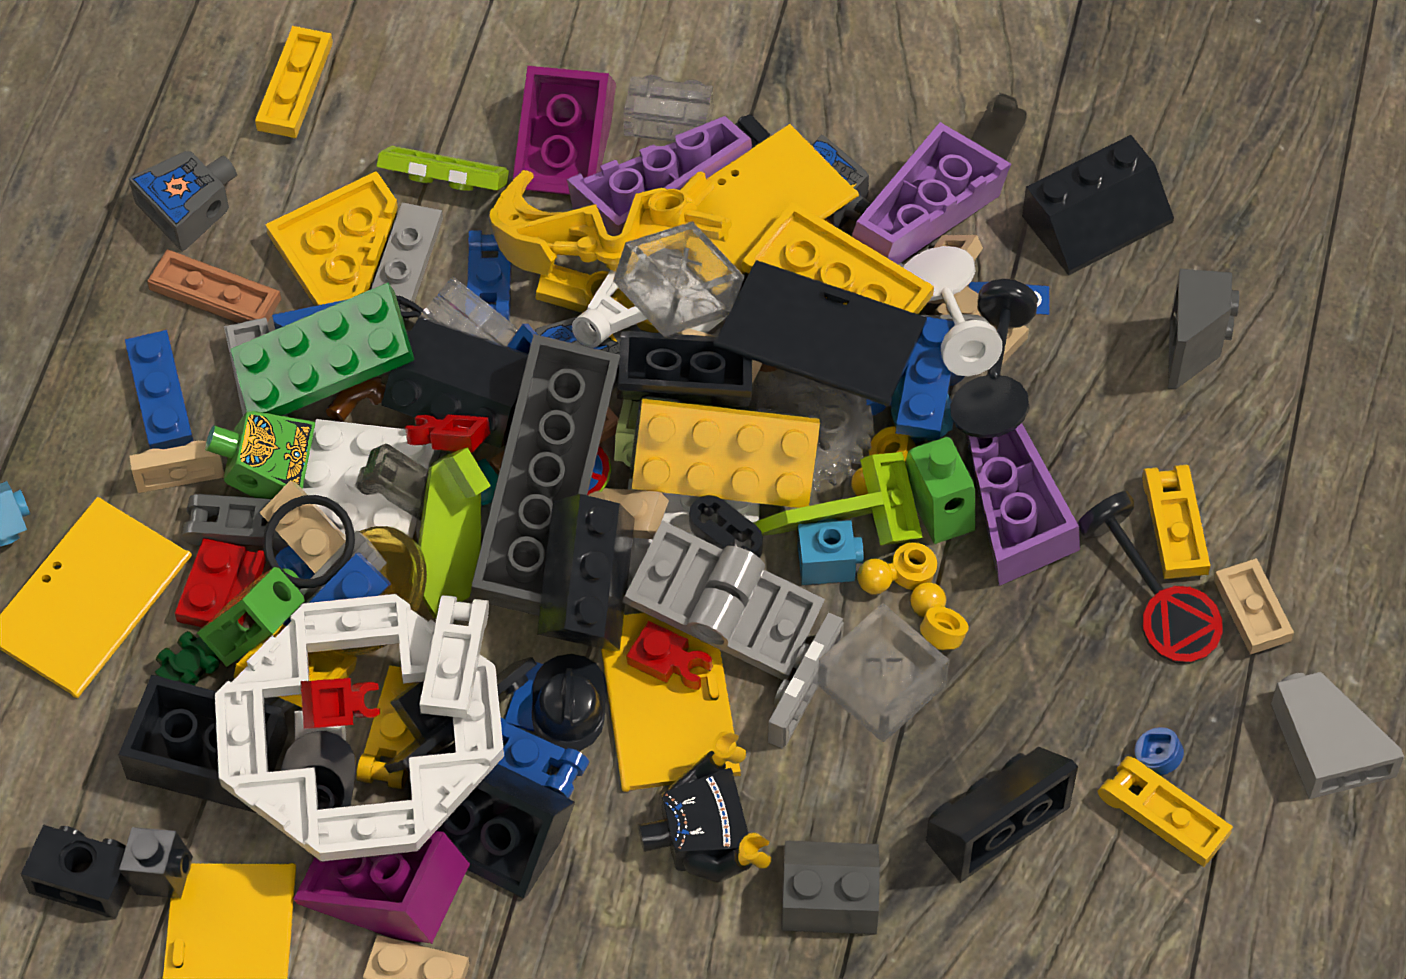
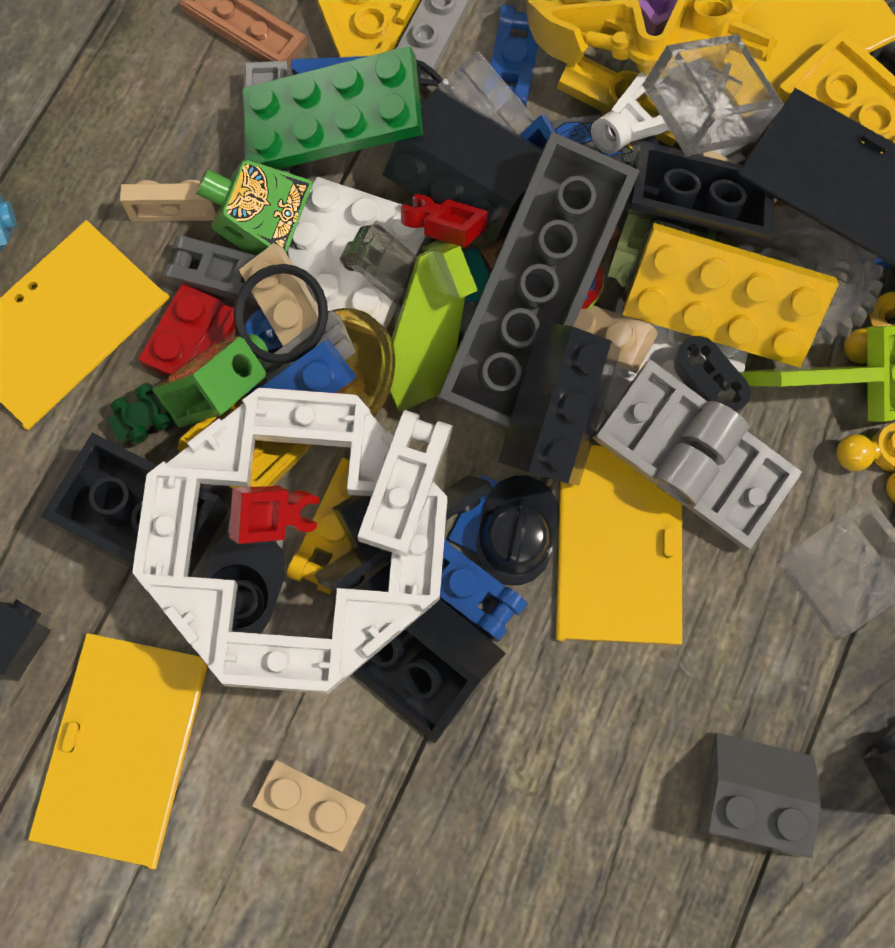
camera: 10 degrees right, 15 degrees up
(156, 862) = (61, 638): brick -> none
(159, 391) = (169, 119): blue plate -> none
(350, 397) = (351, 162): reddish brown arm -> none
(389, 893) = (303, 726): magenta slope -> none
(664, 653) = (623, 498): red plate -> none
(706, 819) = (640, 702): black torso -> none
(796, 694) = (754, 572): light grey plate -> none
(828, 552) = (812, 417): dark azure brick -> none

